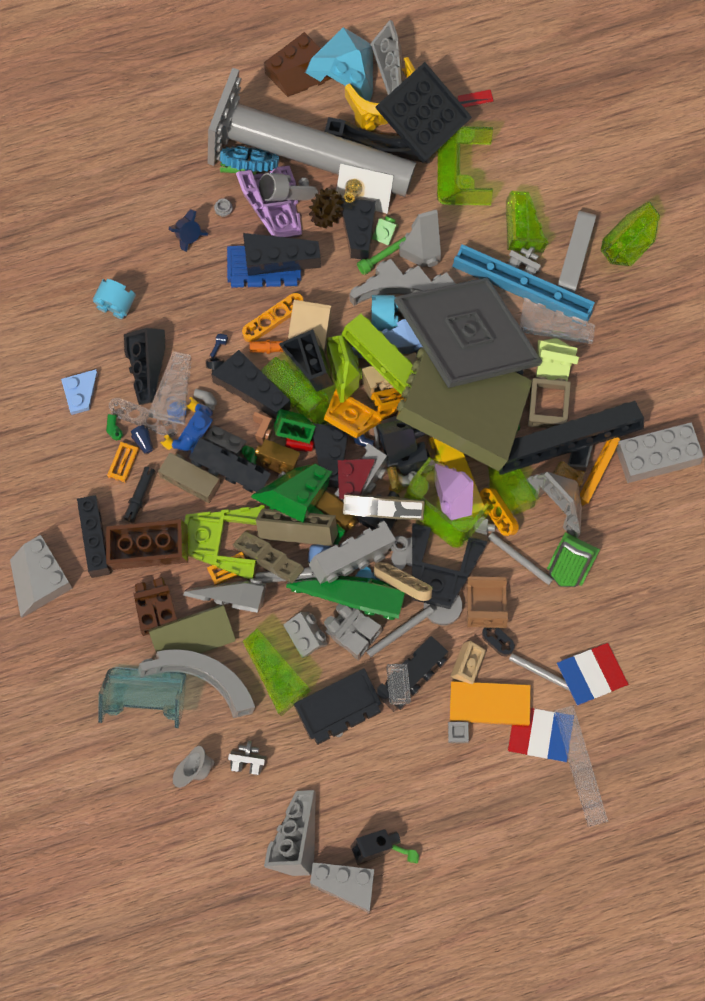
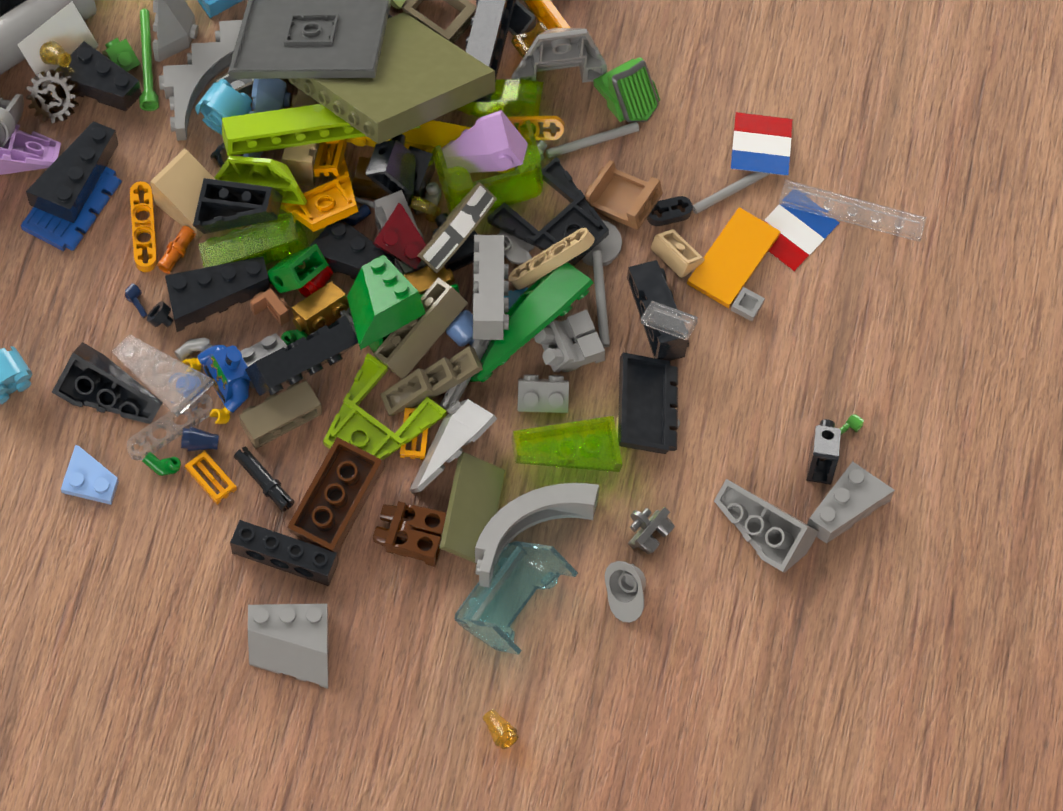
camera: 65 degrees left, 5 degrees down
(48, 743) = (501, 730): none -> clear yellow cone

